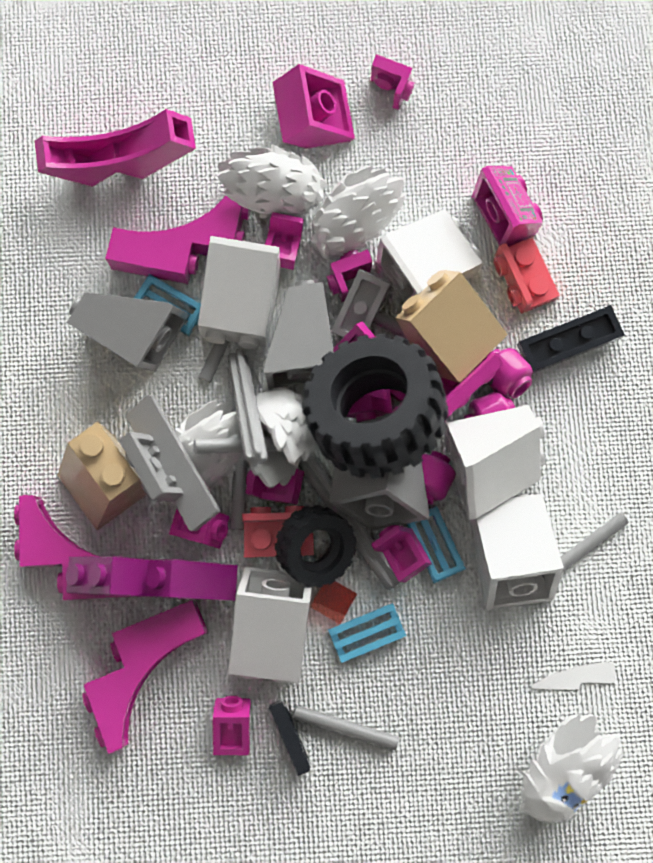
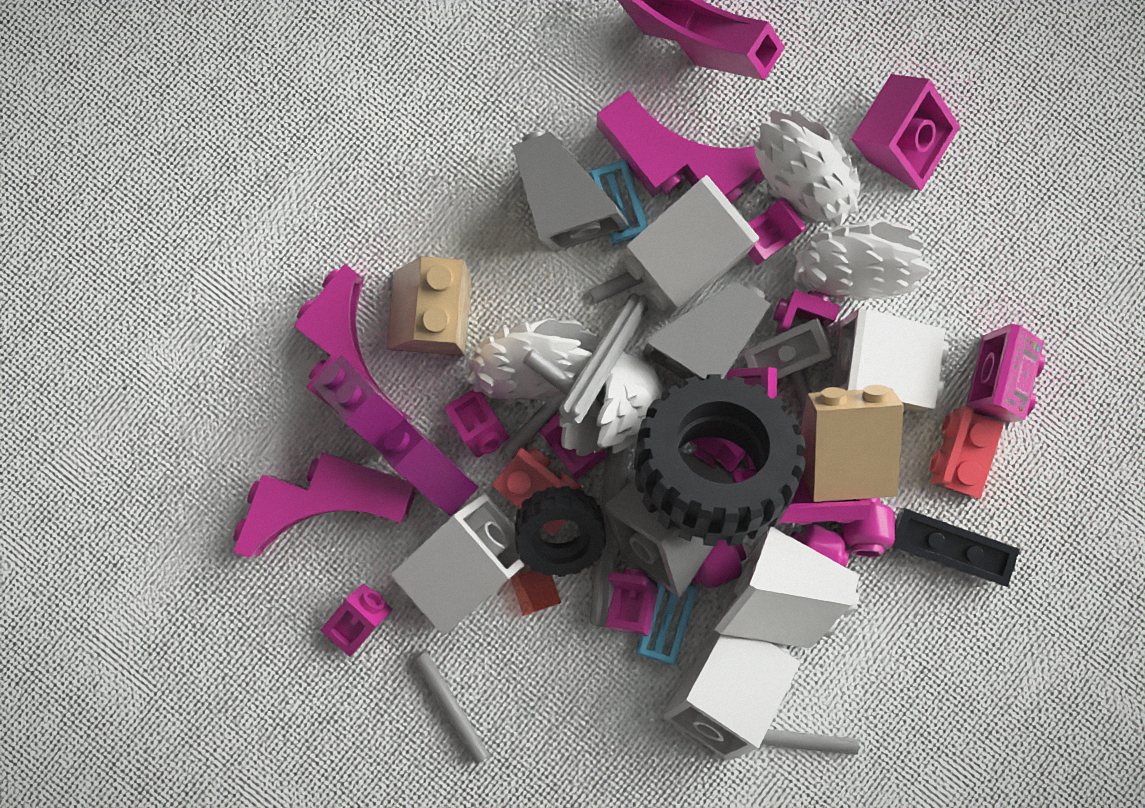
camera: 45 degrees right, 5 degrees up
(165, 465) = (489, 348): light grey bracket -> none
(290, 737) = (397, 673): black tile -> none
(392, 75) = (1009, 161): dark pink bracket -> none
(394, 621) = (531, 657): medium azure tile -> none

